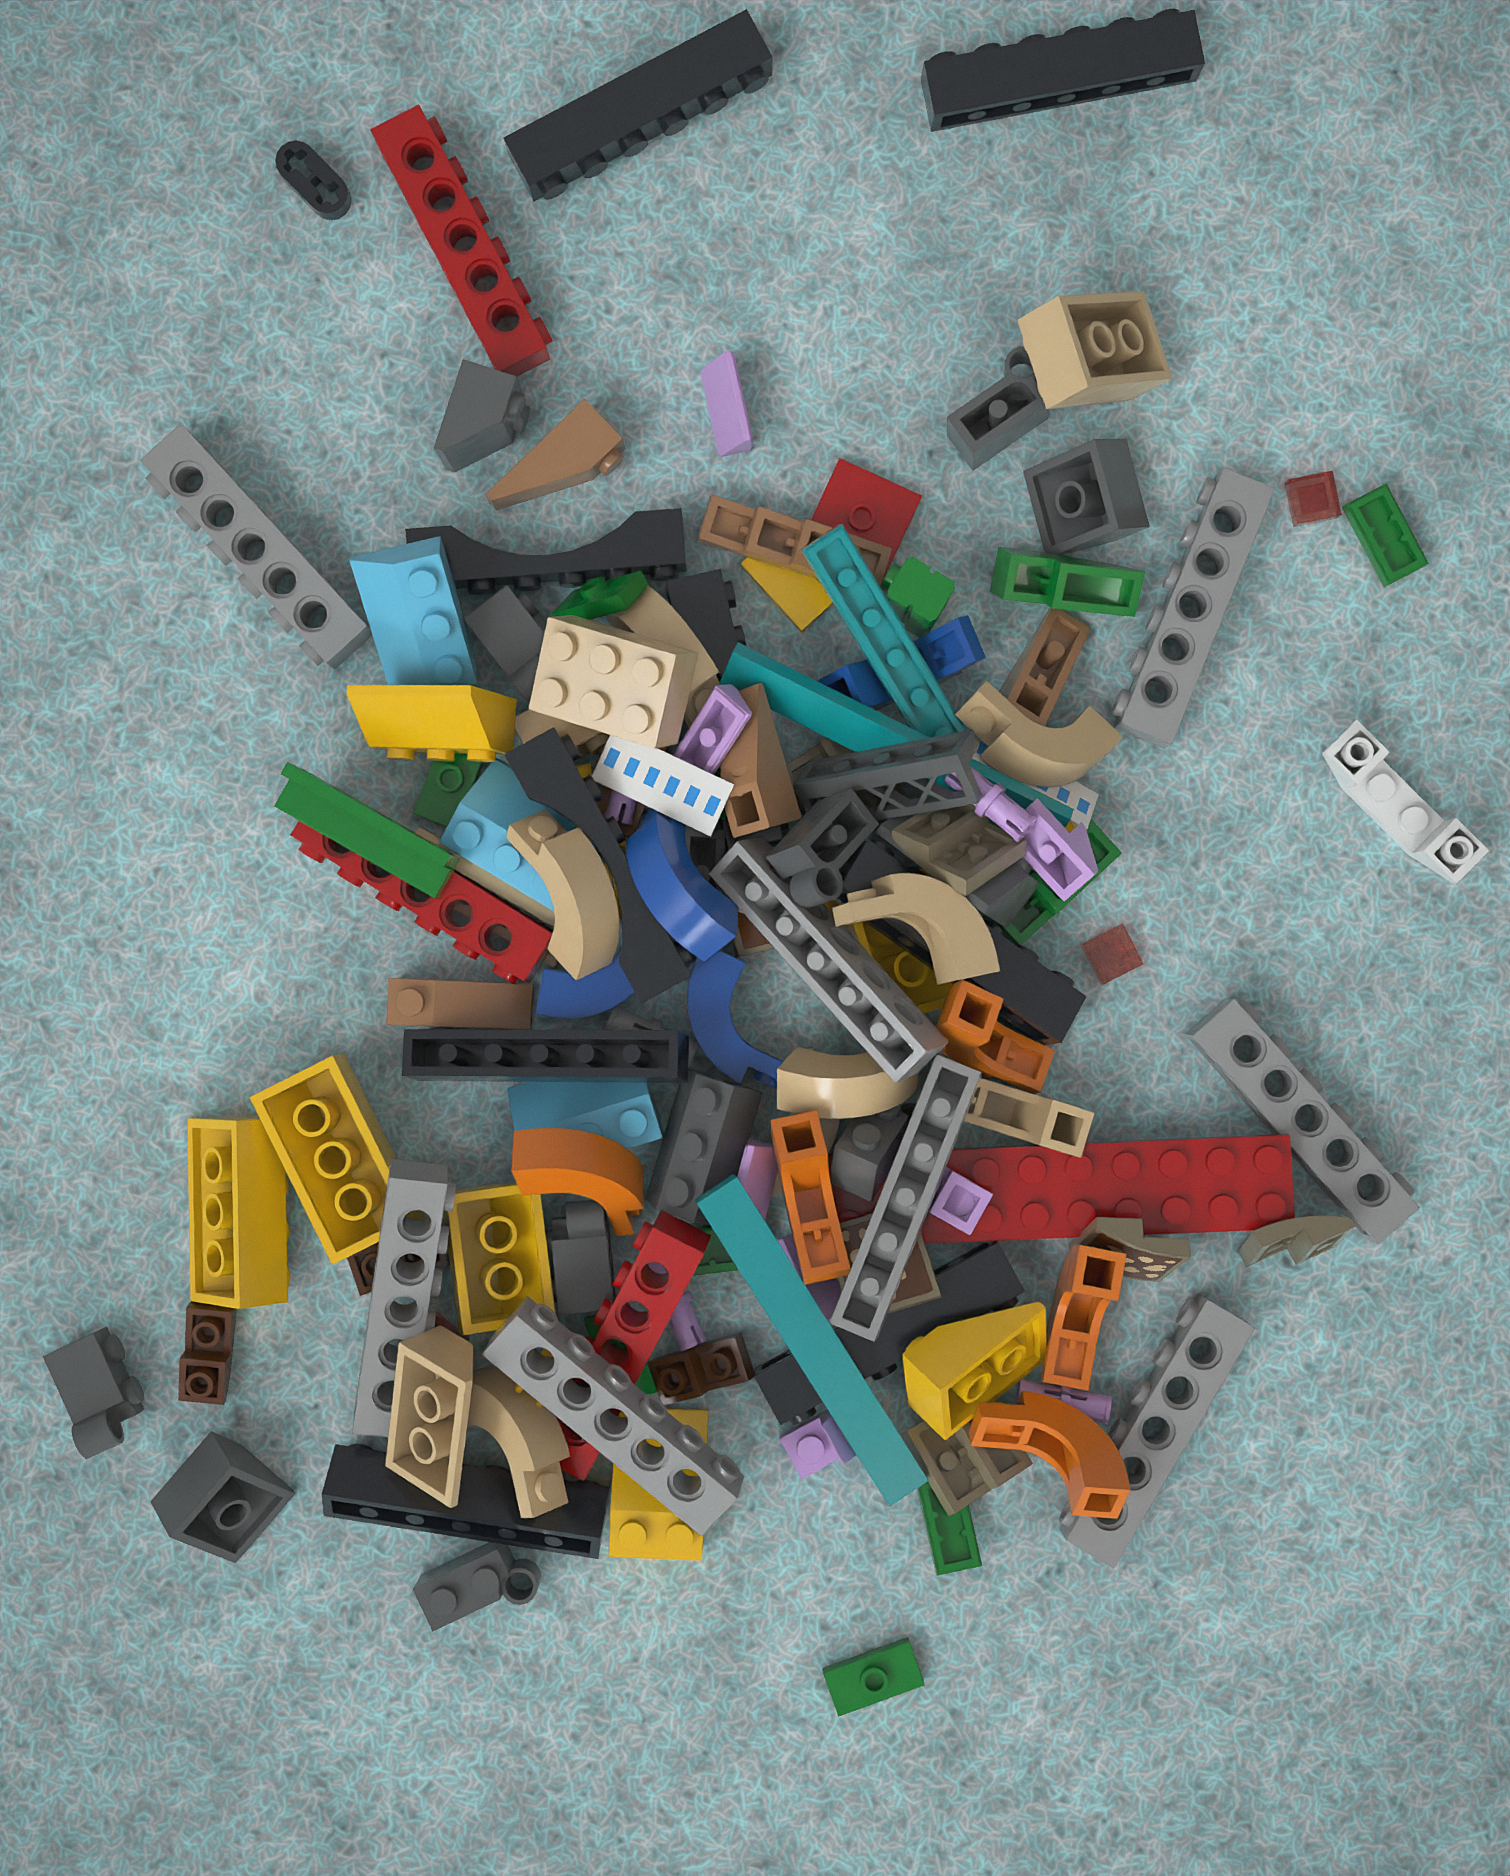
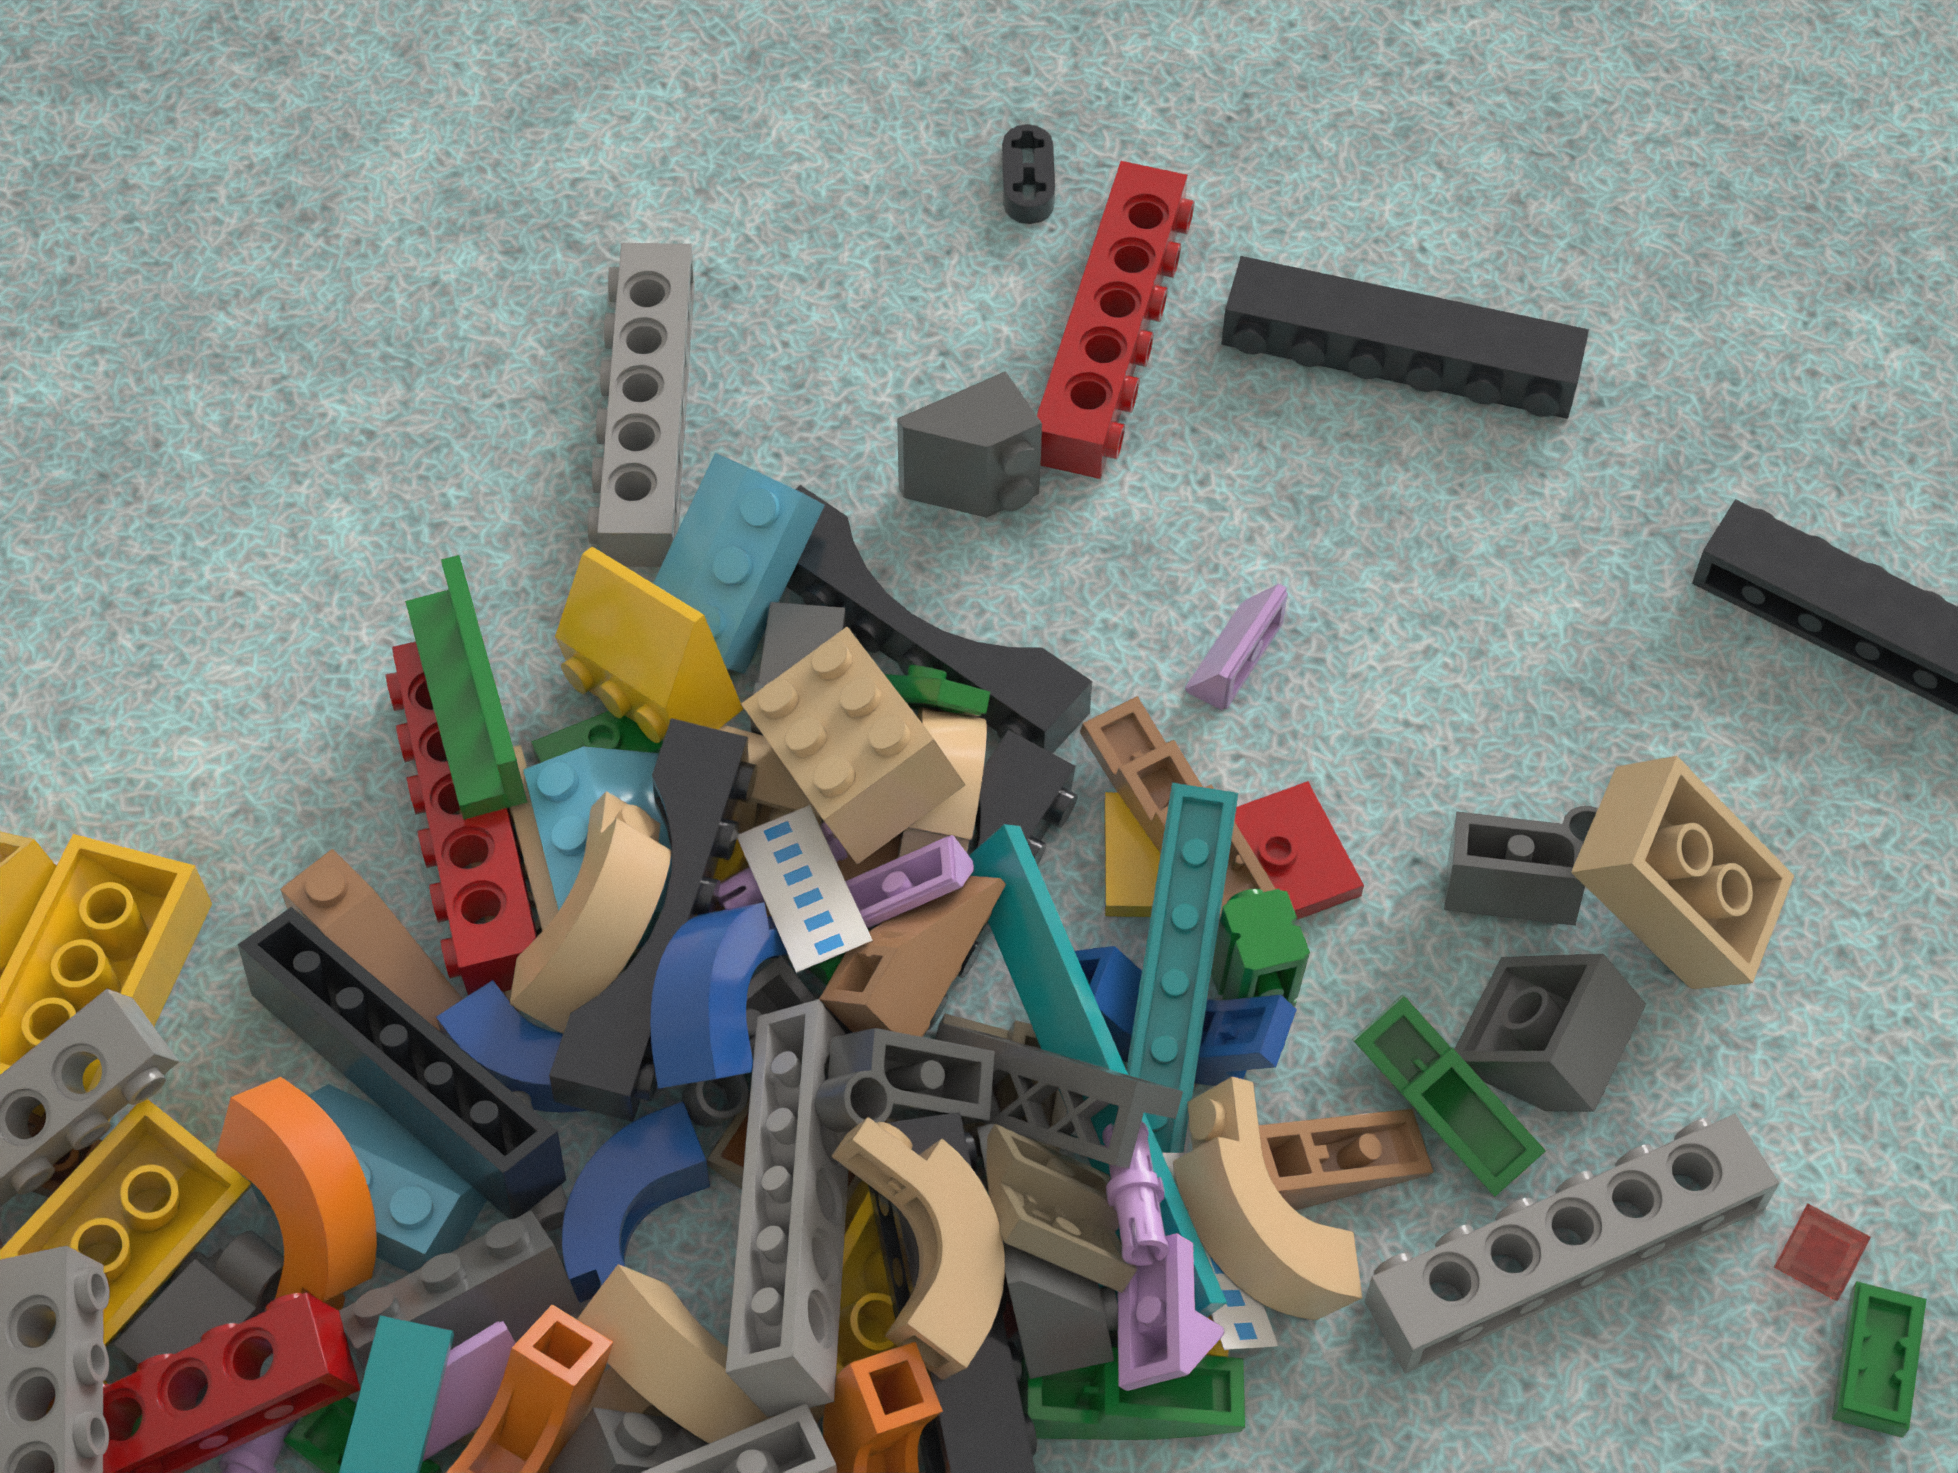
camera: 40 degrees right, 30 degrees down
(564, 458) = (1022, 558): medium nougat slope -> none

